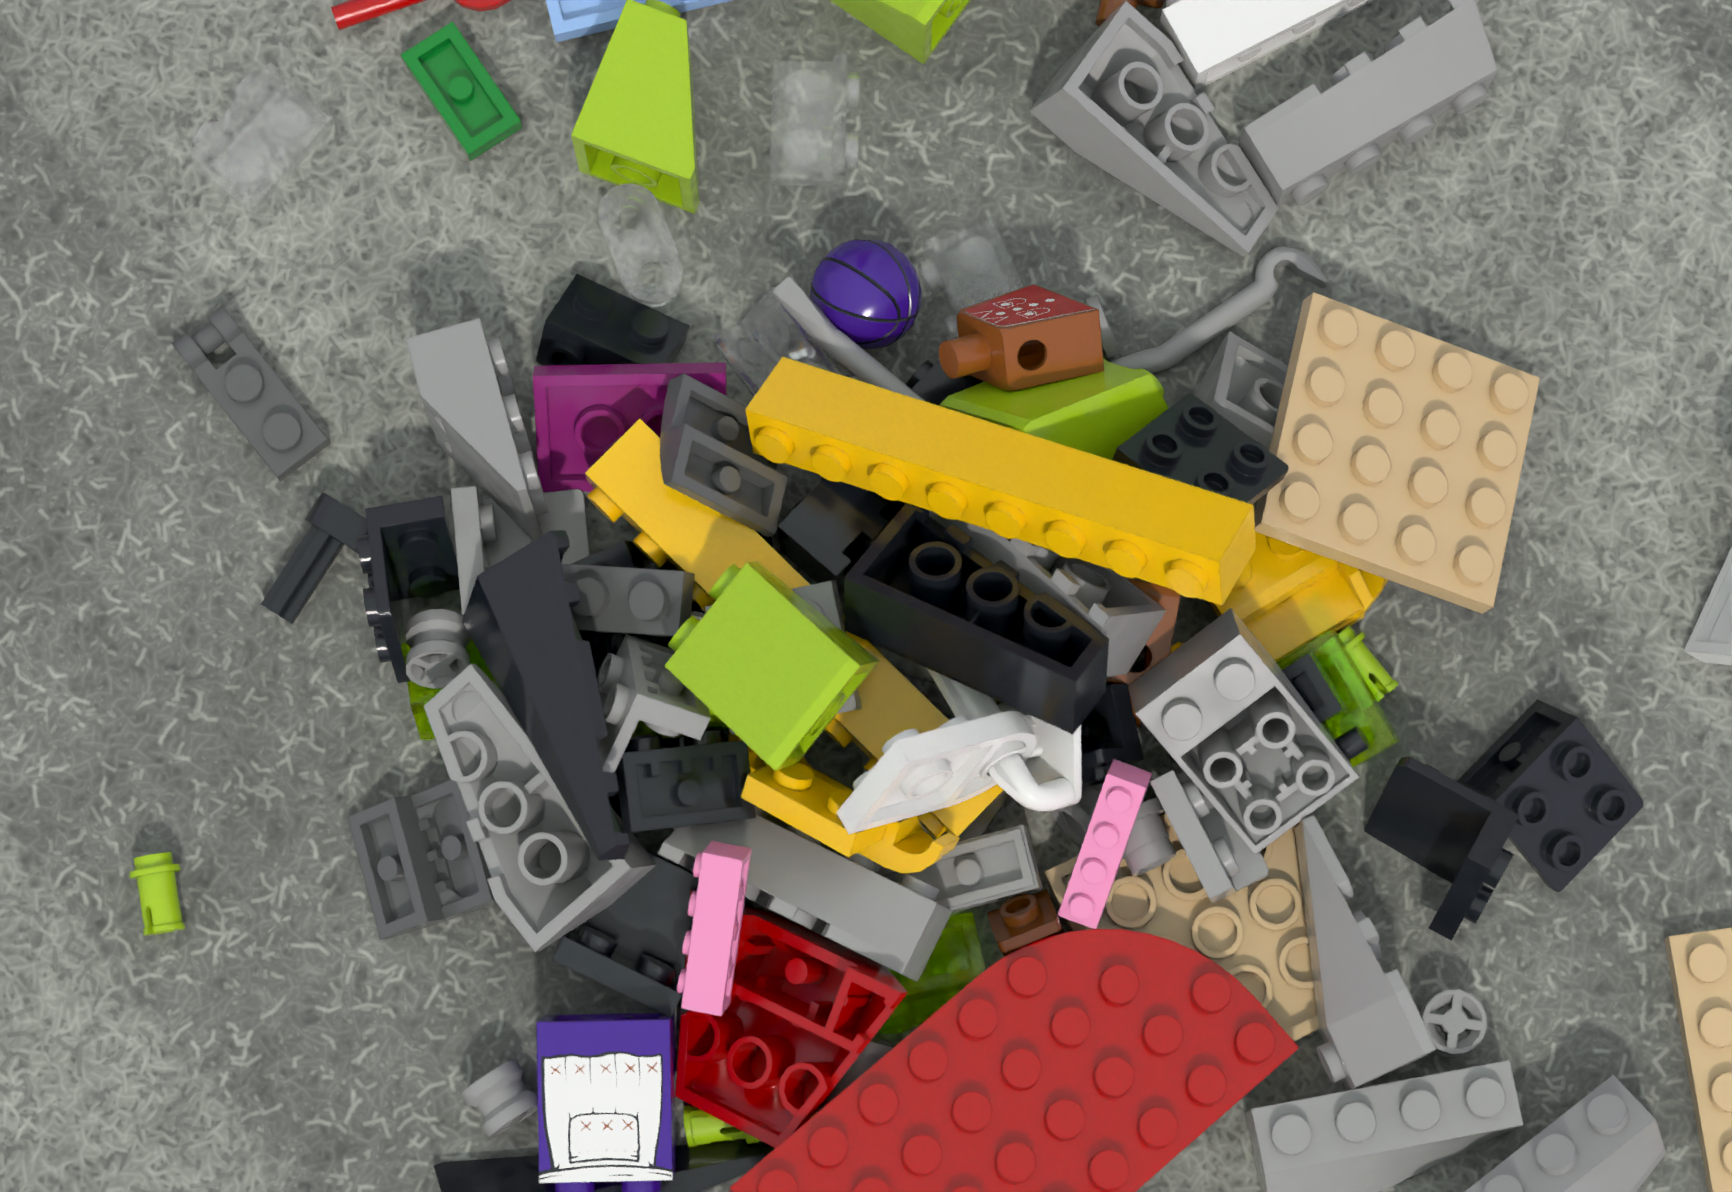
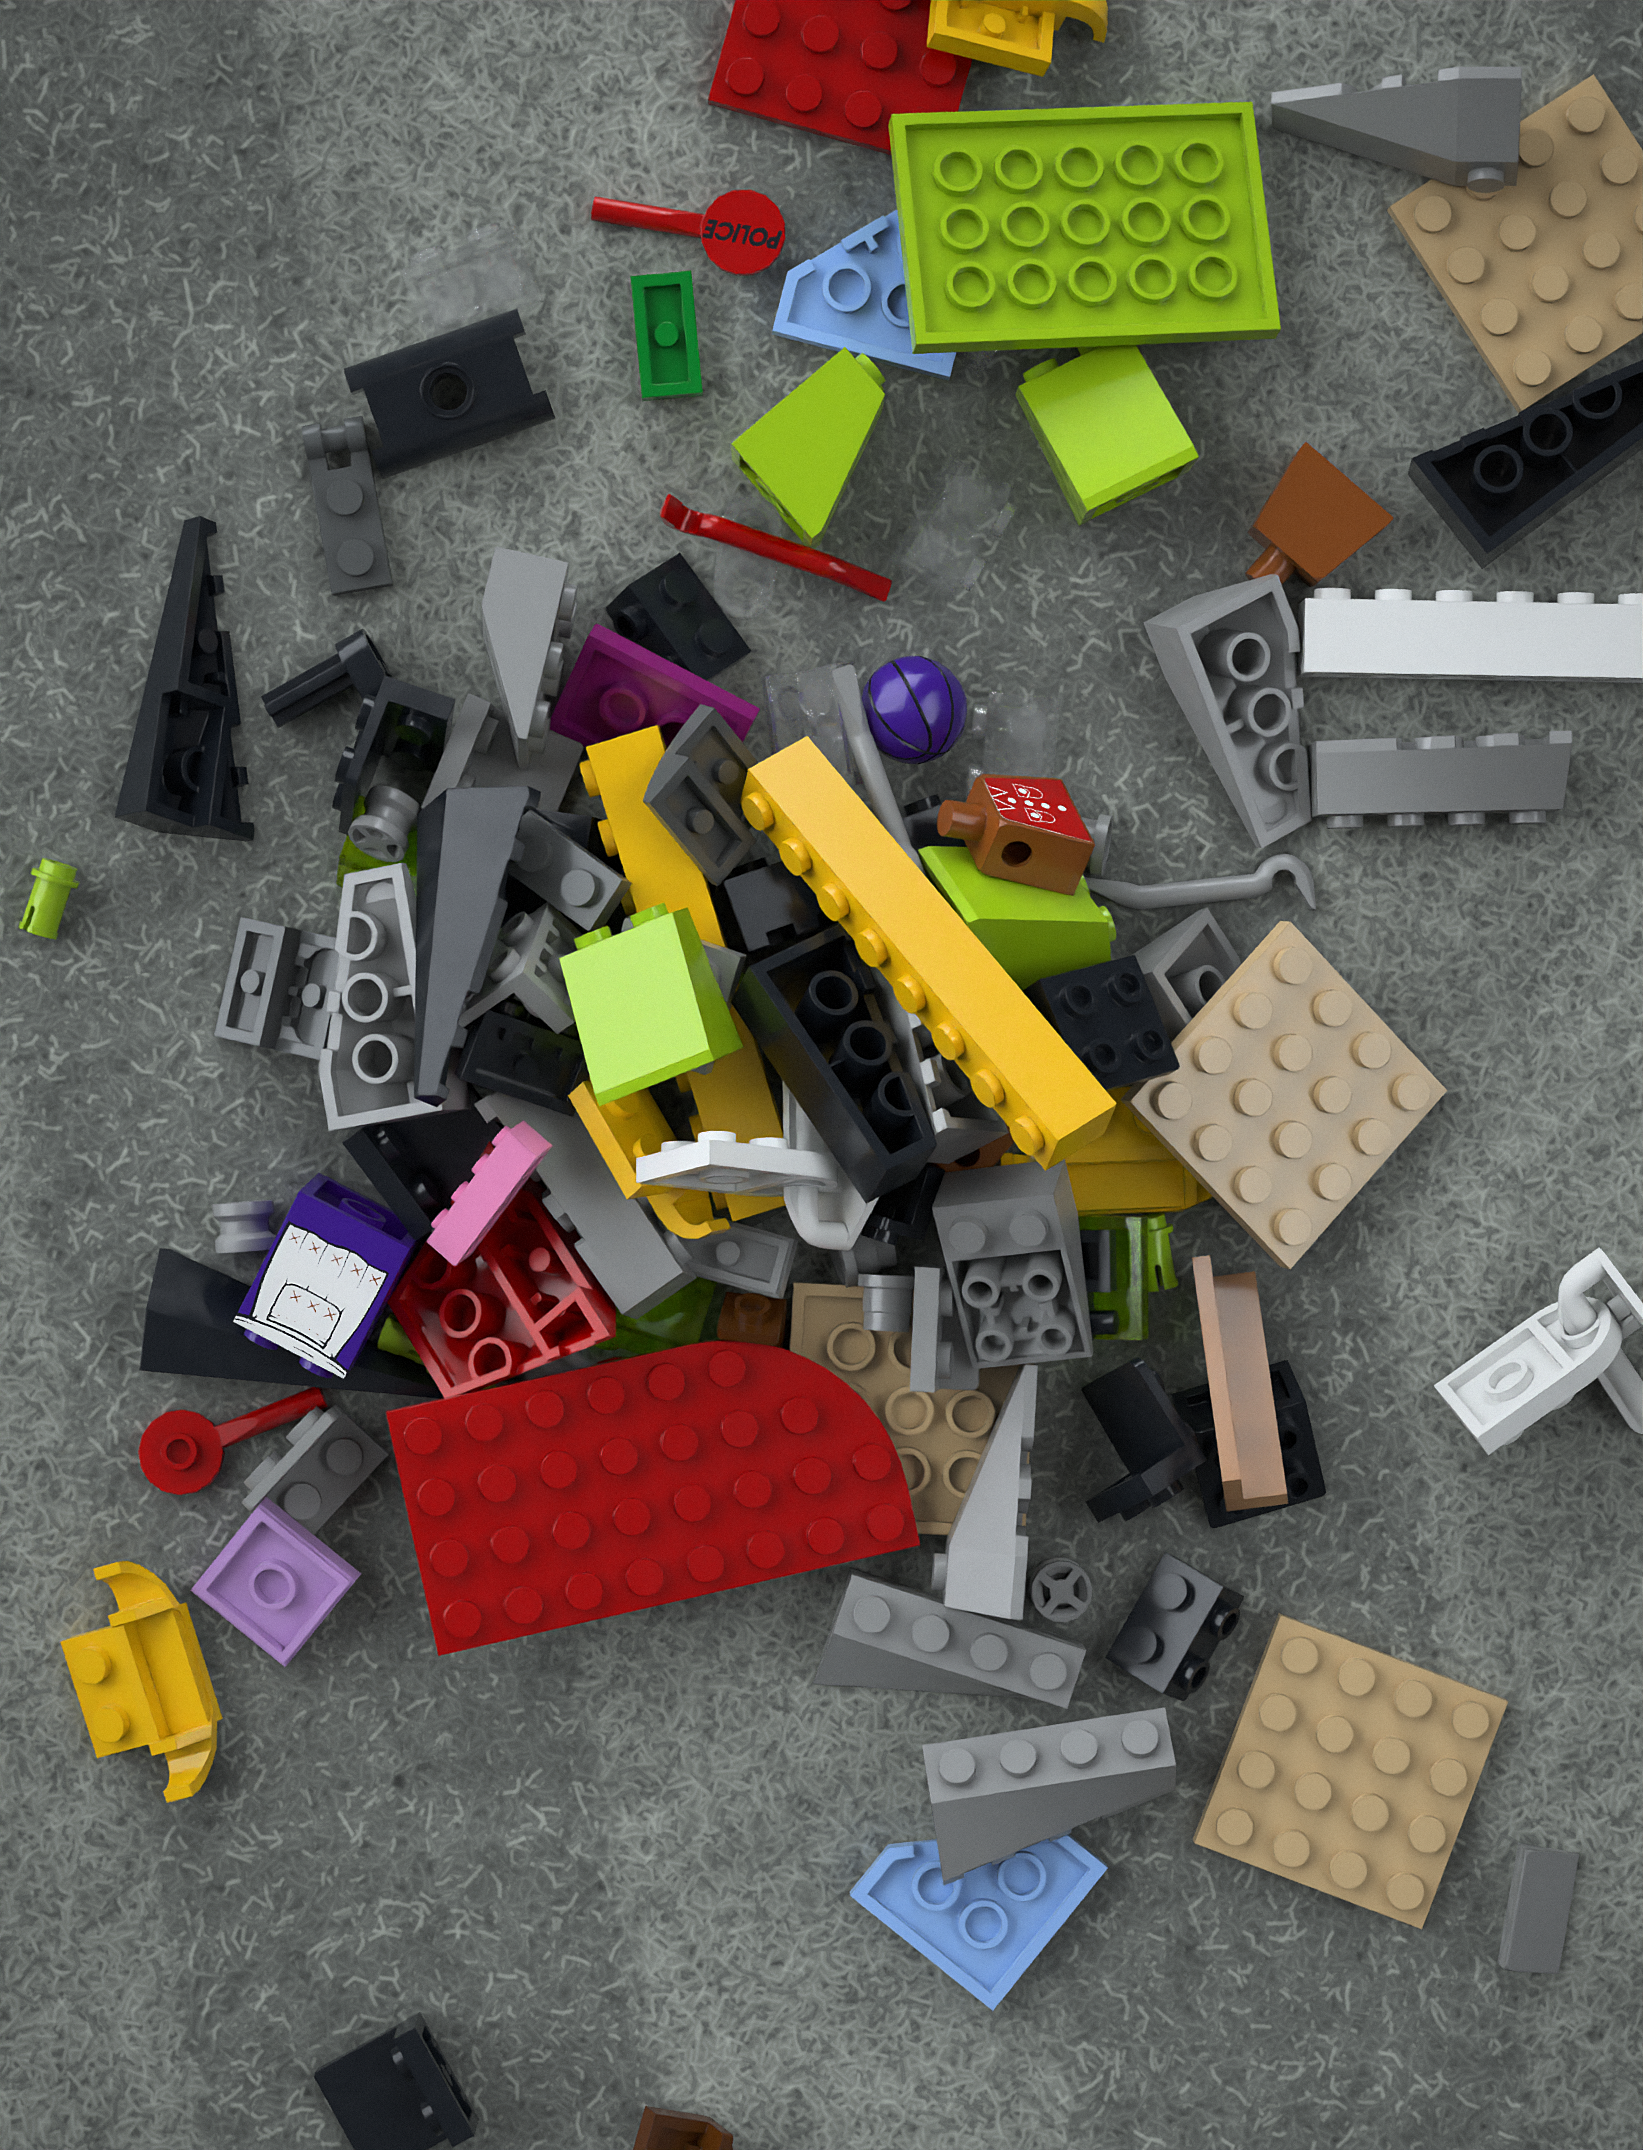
camera: 30 degrees right, 10 degrees up
(212, 692) = (182, 749): none -> black wedge
(301, 198) = (403, 384): none -> black piece
(658, 220) = (772, 547): none -> red piece
(1104, 844) = (851, 1295): bright pink piece -> none
(1510, 738) = (1240, 1388): none -> medium nougat fence
(1579, 1001) = (1176, 1628): none -> black bracket

